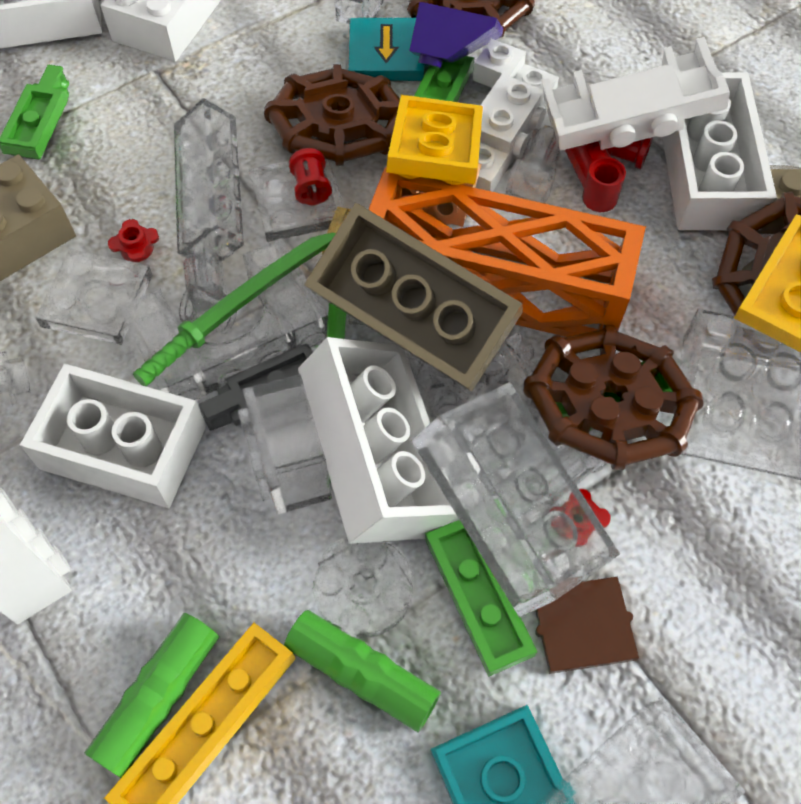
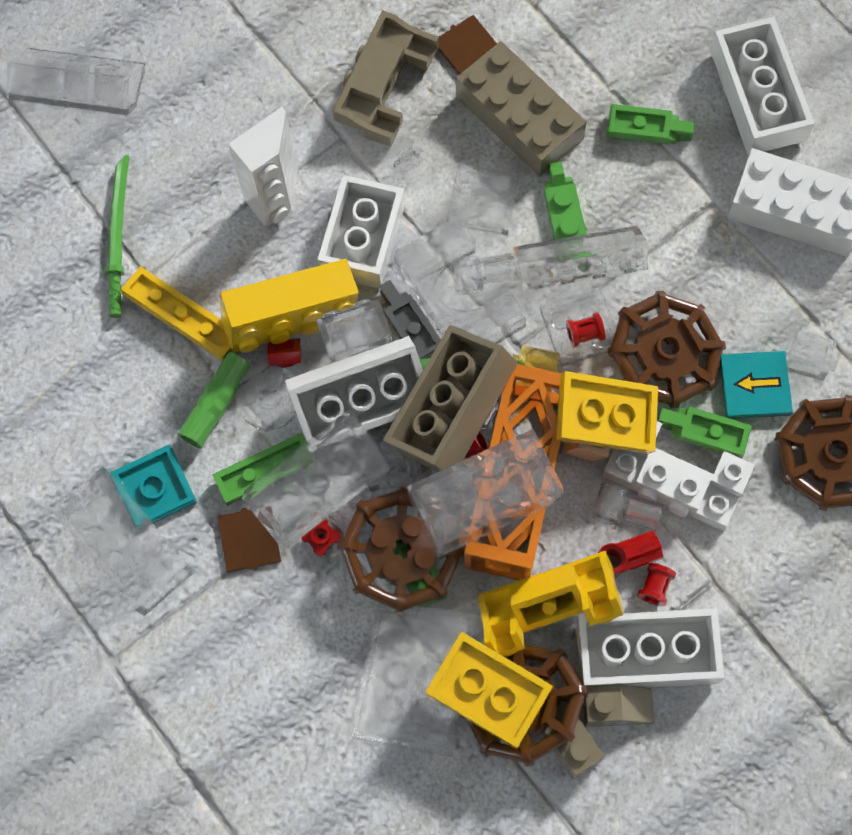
camera: 90 degrees right, 10 degrees up
(108, 209) = (563, 204): none -> bright green hinge
(134, 241) = (531, 224): red plate -> none
(152, 695) = (190, 278): bright green axle -> none
(193, 333) = (433, 265): bright green sword -> none
(228, 536) = (285, 305): none -> yellow brick
(292, 557) = (285, 353): none -> red plate
(450, 34) = (753, 430): dark purple slope -> none
(558, 257) = (485, 492): none -> clear brick
(638, 103) = (665, 583): white bracket -> none
(671, 257) = (549, 597): none -> yellow bracket

